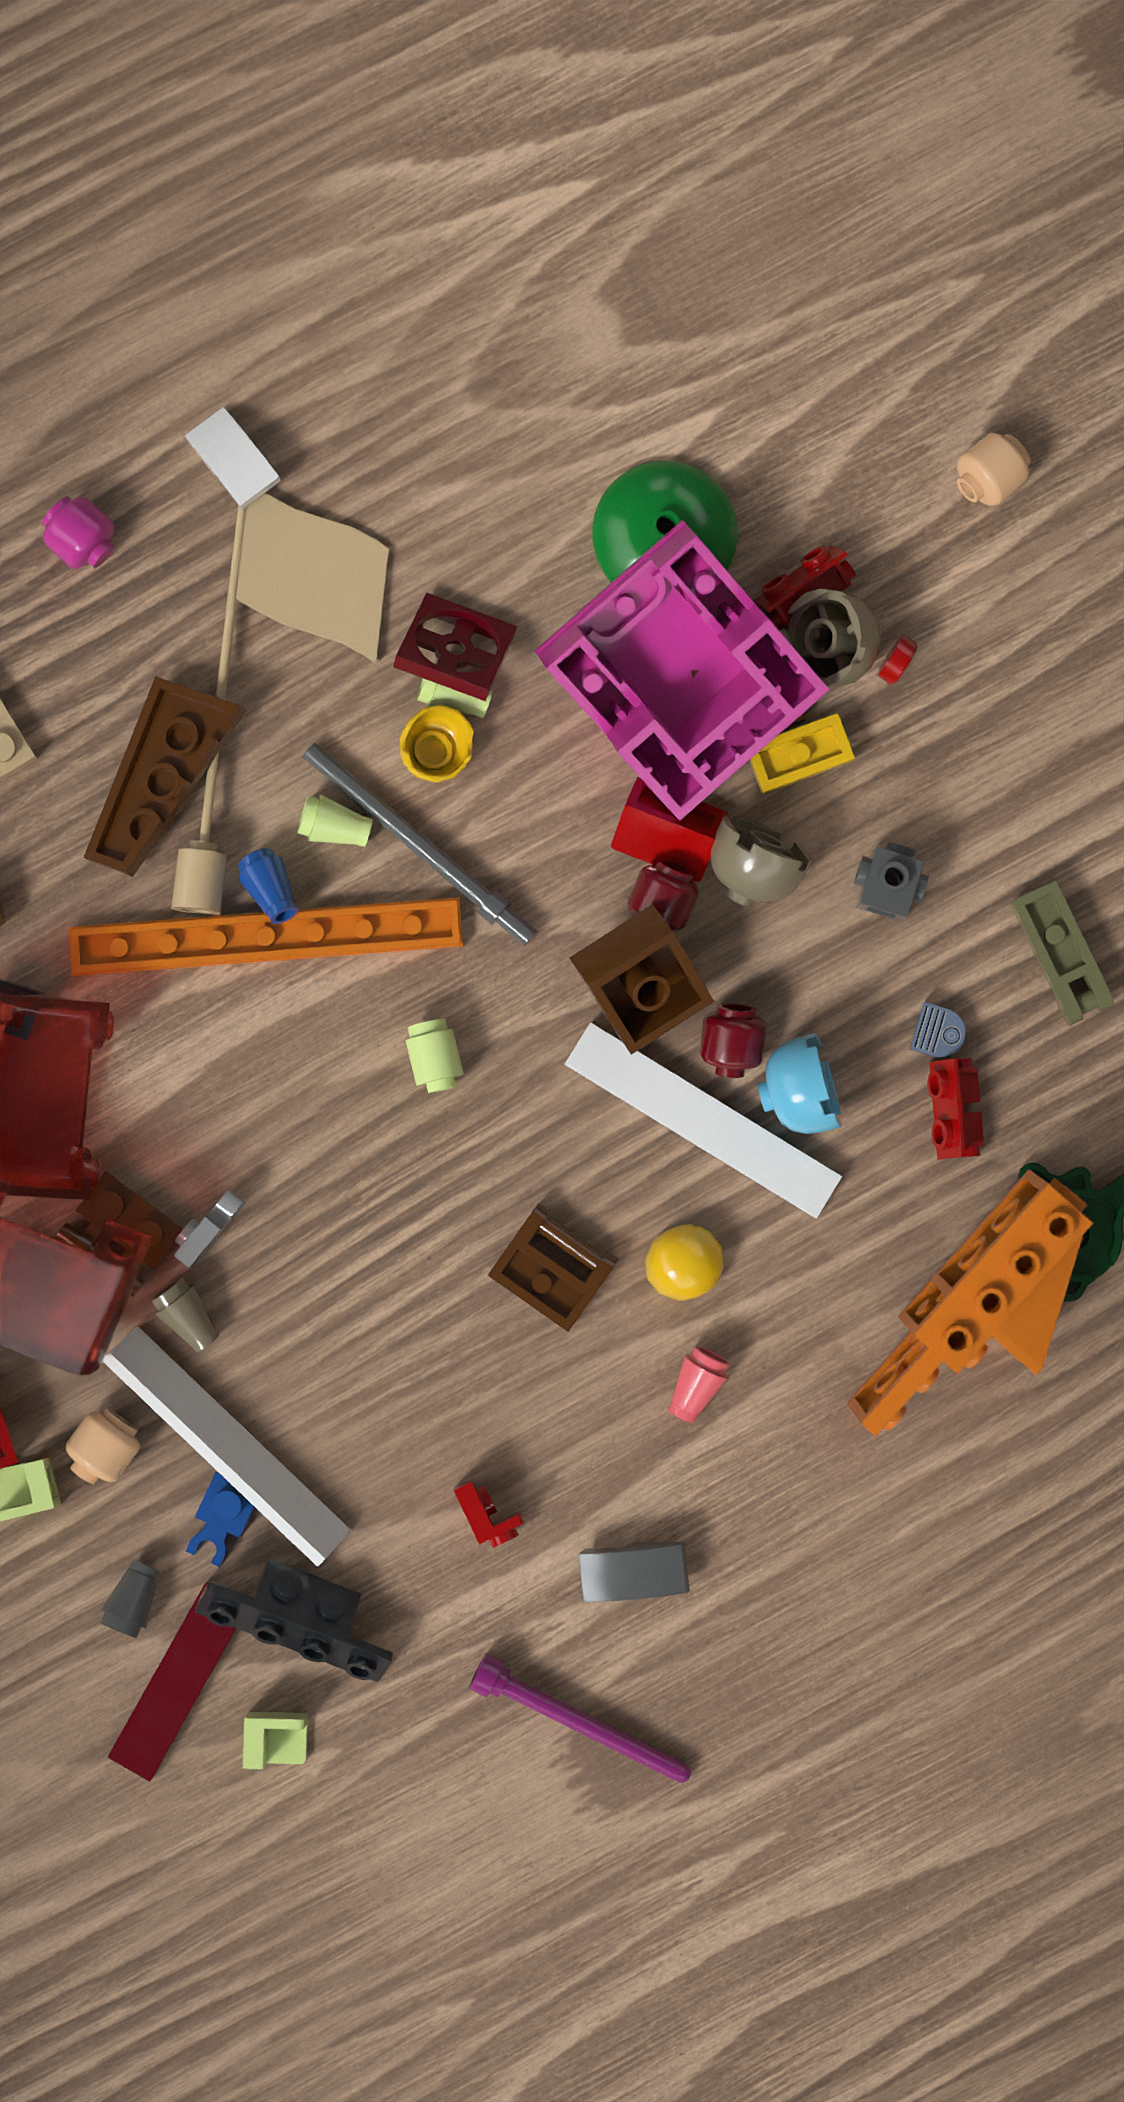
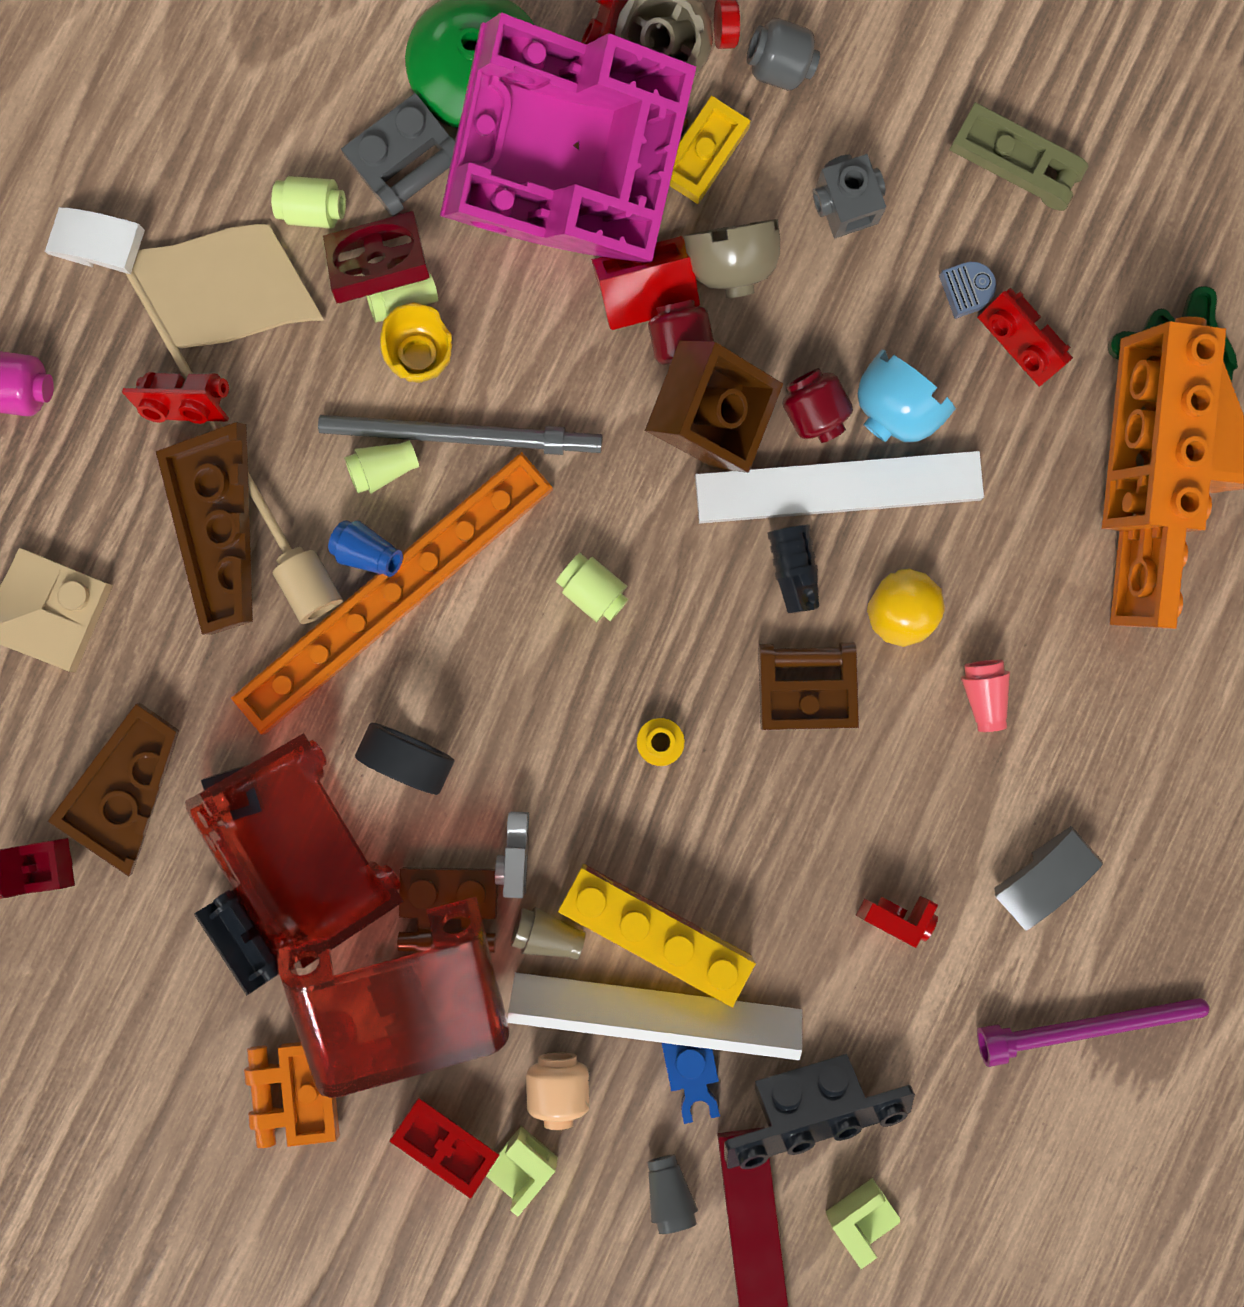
camera: 35 degrees left, 0 degrees up
(176, 1083) = (404, 758): none -> black tyre
(192, 634) = (163, 398): none -> red hinge
(276, 1378) = (657, 935): none -> yellow brick
(412, 1228) = (666, 757): none -> yellow plate
(434, 556) = (308, 201): none -> yellowish green brick
(543, 557) = (396, 143): none -> dark grey plate
(615, 1162) = (795, 567): none -> black hinge
(924, 721) = (783, 54): none -> dark grey head

